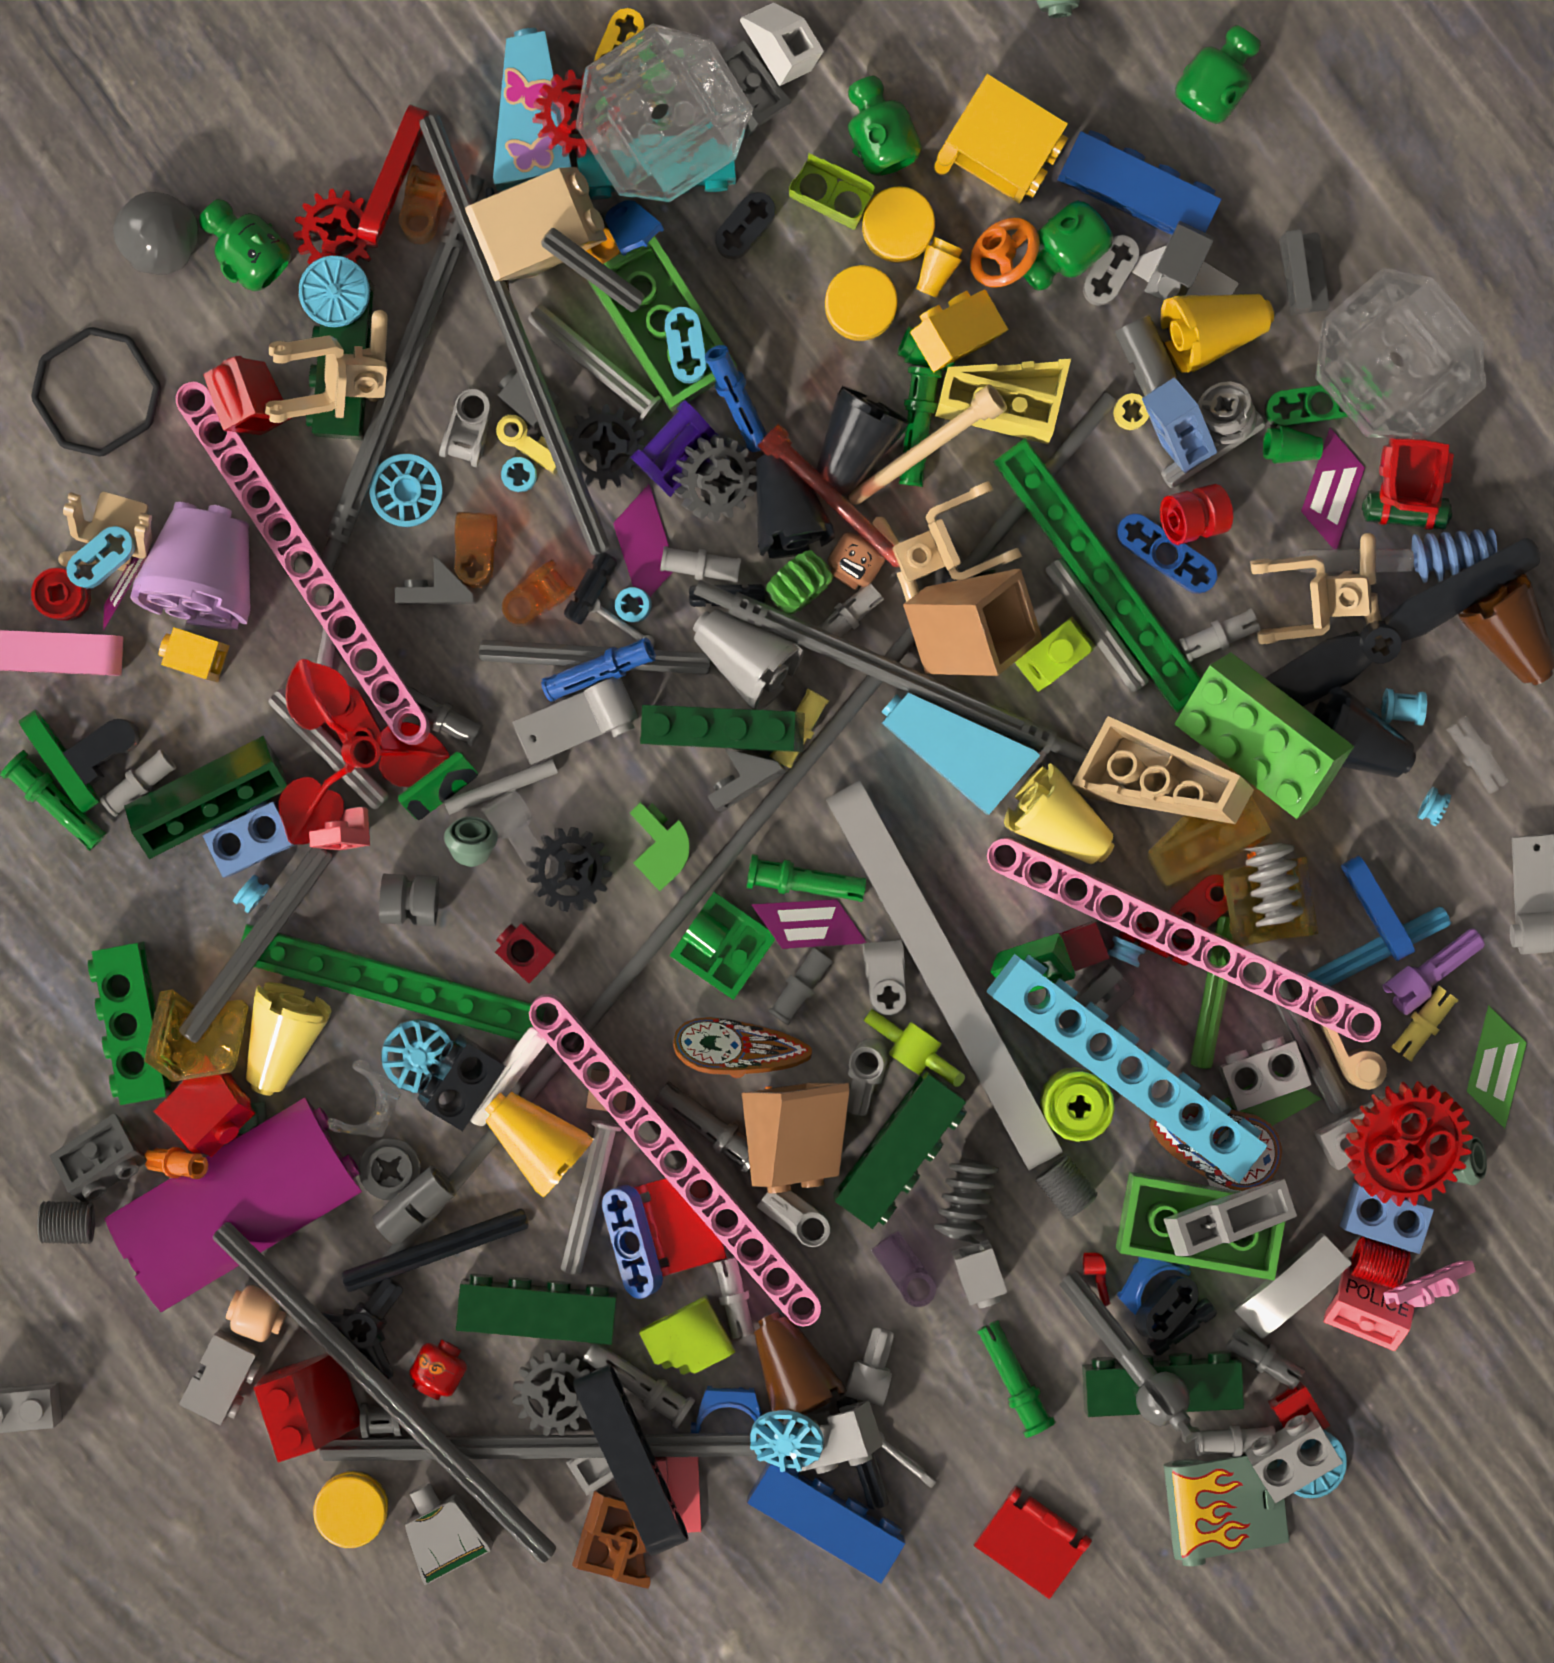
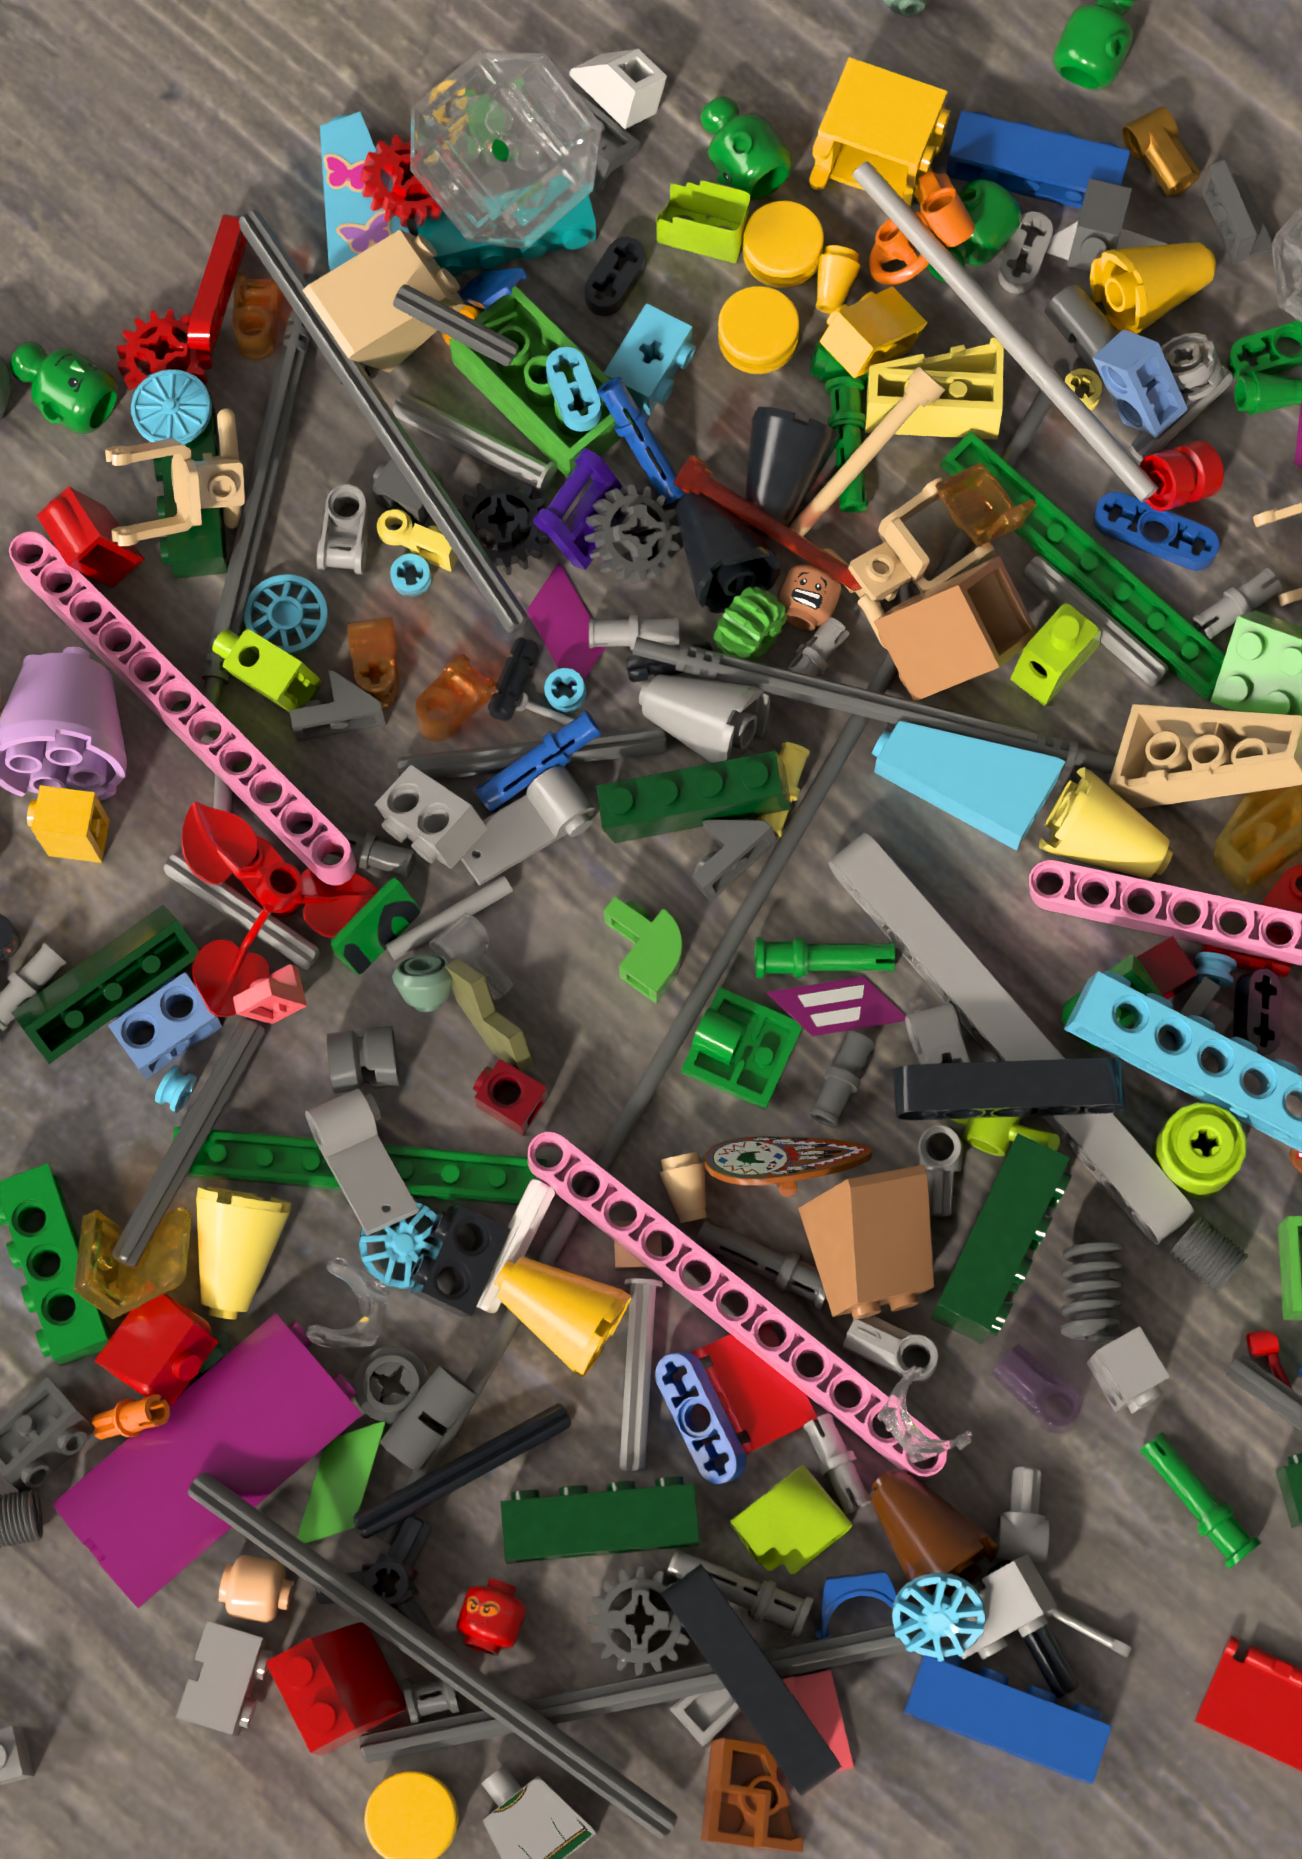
camera: 10 degrees left, 15 degrees down
(336, 1240) = (340, 1483): none -> bright green sticker
(392, 556) = (267, 668): none -> lime torso
(394, 986) = (358, 1160): none -> light grey door
(499, 702) = (430, 817): none -> light grey brick
(513, 874) = (499, 1033): none -> olive tile
(556, 880) = (532, 978): black gear -> none
(655, 1051) = (685, 1185): none -> tan cone
(764, 292) = (652, 356): none -> medium azure brick
(784, 1282) = (905, 1432): none -> clear helmet
(931, 1031) = (1009, 1089): none -> black beam
(1017, 514) = (981, 505): none -> clear orange piece
(1042, 232) = (944, 209): none -> orange piece
(1070, 356) = (1005, 331): none -> piece
(1153, 994) = (1259, 1013): none -> black beam
(1248, 185) = (1157, 142): none -> pearl gold piece

